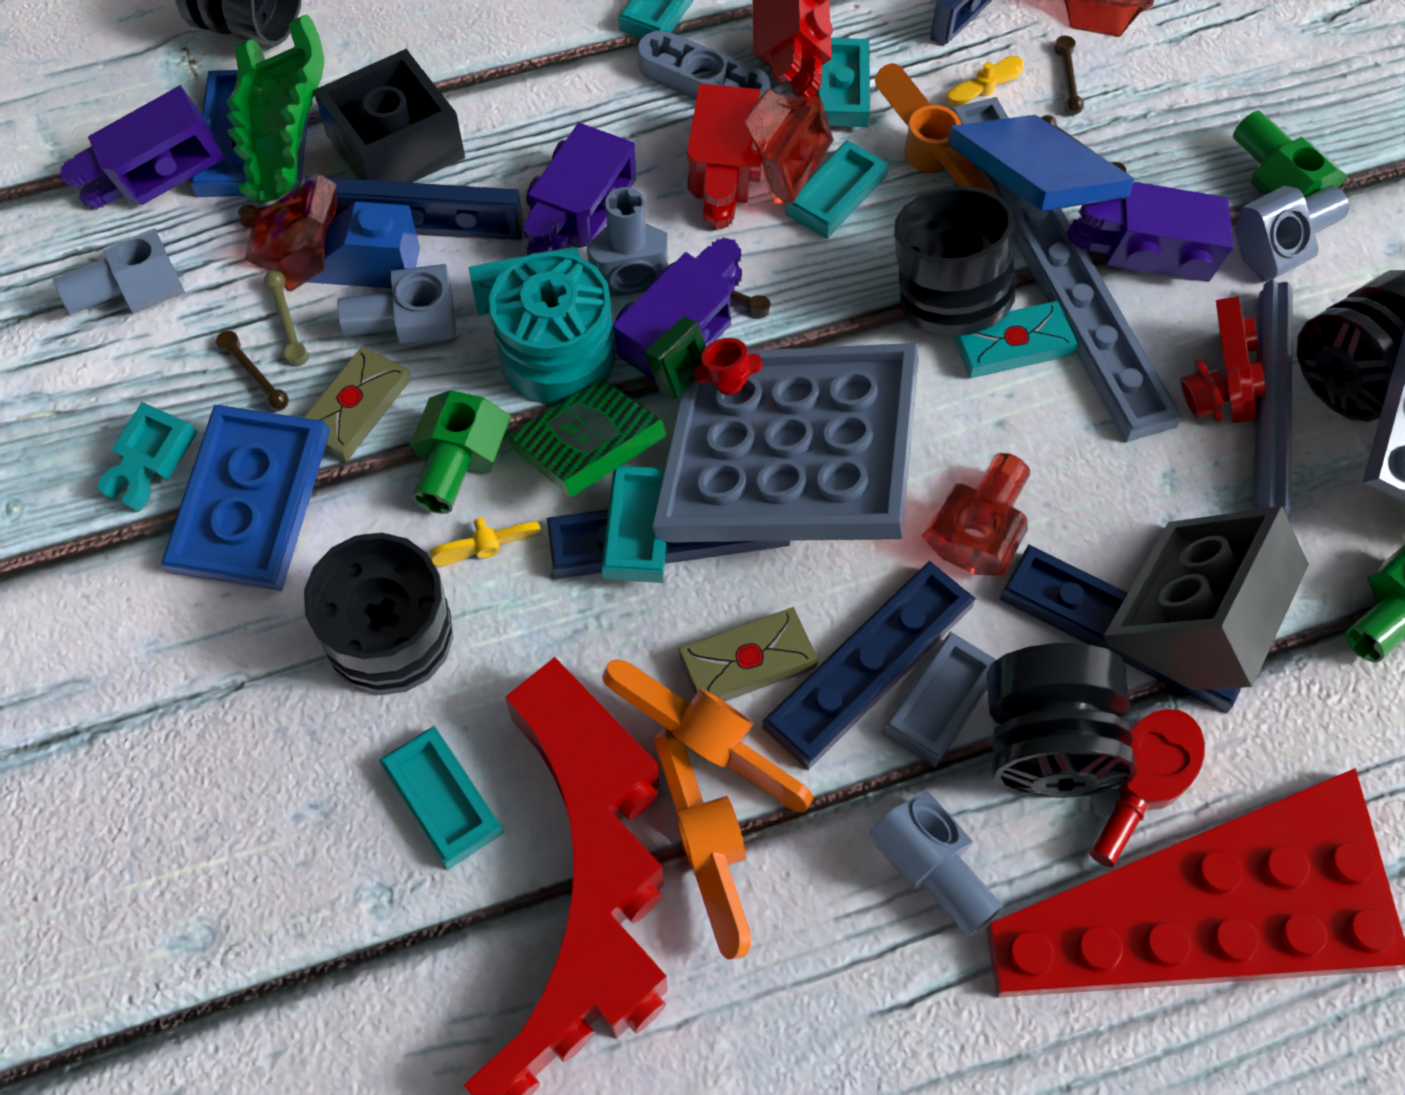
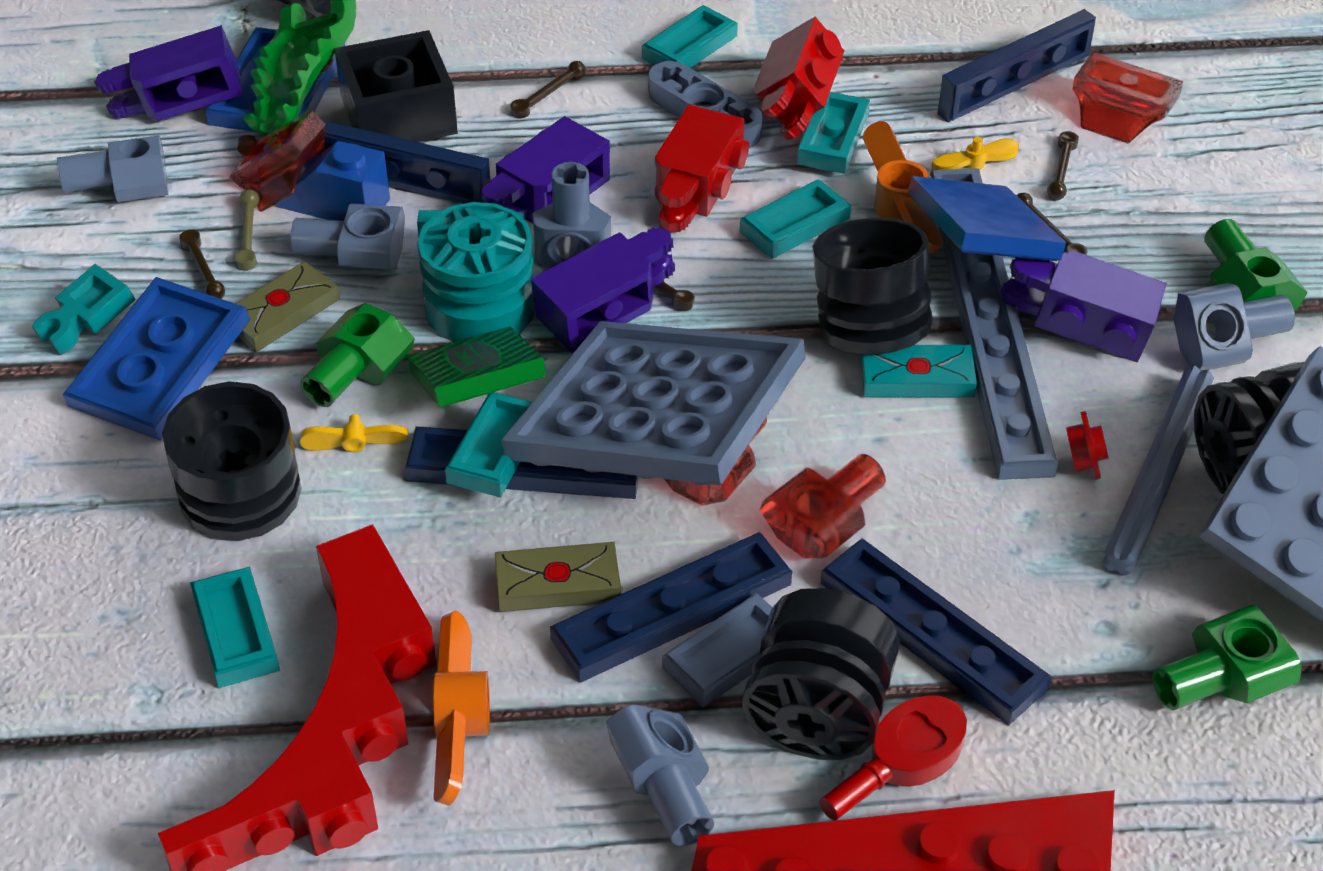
camera: 15 degrees right, 15 degrees down
(518, 111) = (521, 108): none -> dark brown hinge
(676, 357) = (580, 314): dark green tile -> none
(707, 728) = (496, 619): orange piece -> none
(727, 365) = (622, 328): red plate -> none
(789, 140) = (756, 165): clear red slope -> none
(1211, 598) = (1020, 611): dark grey slope -> none
(1243, 378) = (1124, 434): red hinge -> none

